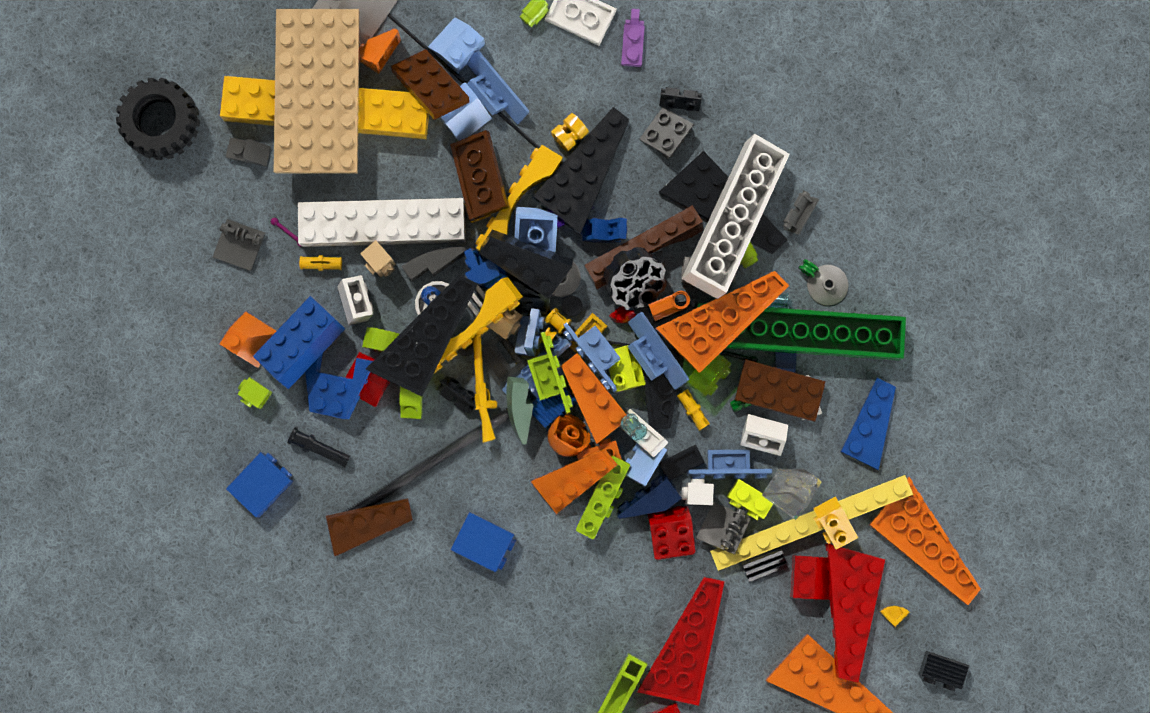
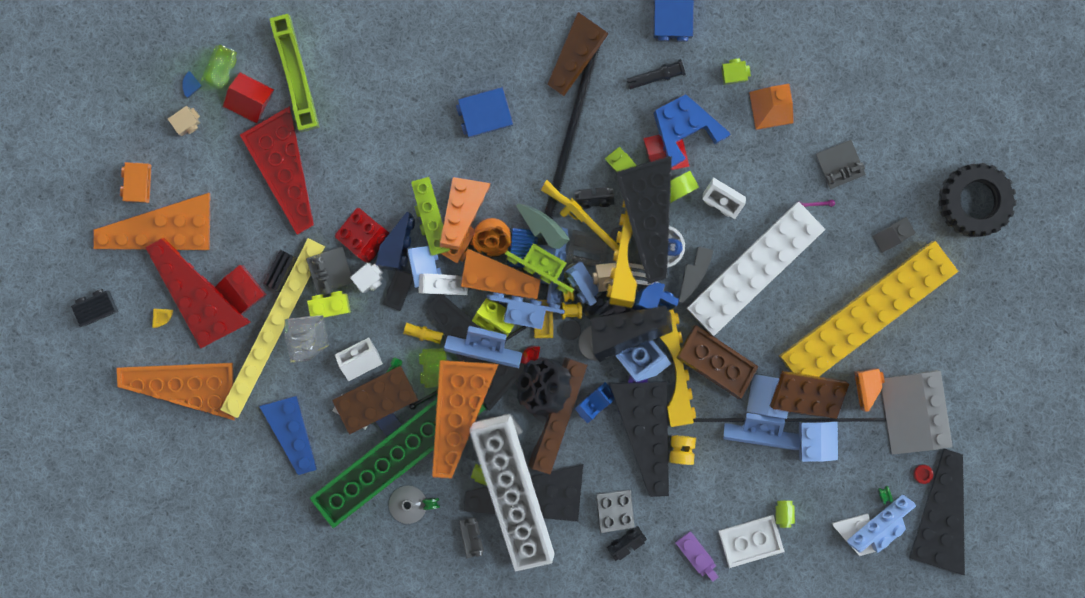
camera: 140 degrees right, 5 degrees up
(299, 342) = (735, 134): blue brick -> none
(316, 91) = (883, 318): tan plate -> none
(320, 263) = (782, 194): yellow pin -> none
(378, 260) = (733, 240): tan brick -> none
(634, 427) = (453, 283): clear light blue bush -> none
(667, 305) = (504, 387): orange piece -> none
(729, 463) = (365, 318): medium blue bracket -> none
(781, 301) = (428, 462): clear light blue bush -> none
(835, 522) = (256, 341): yellow brick -> none

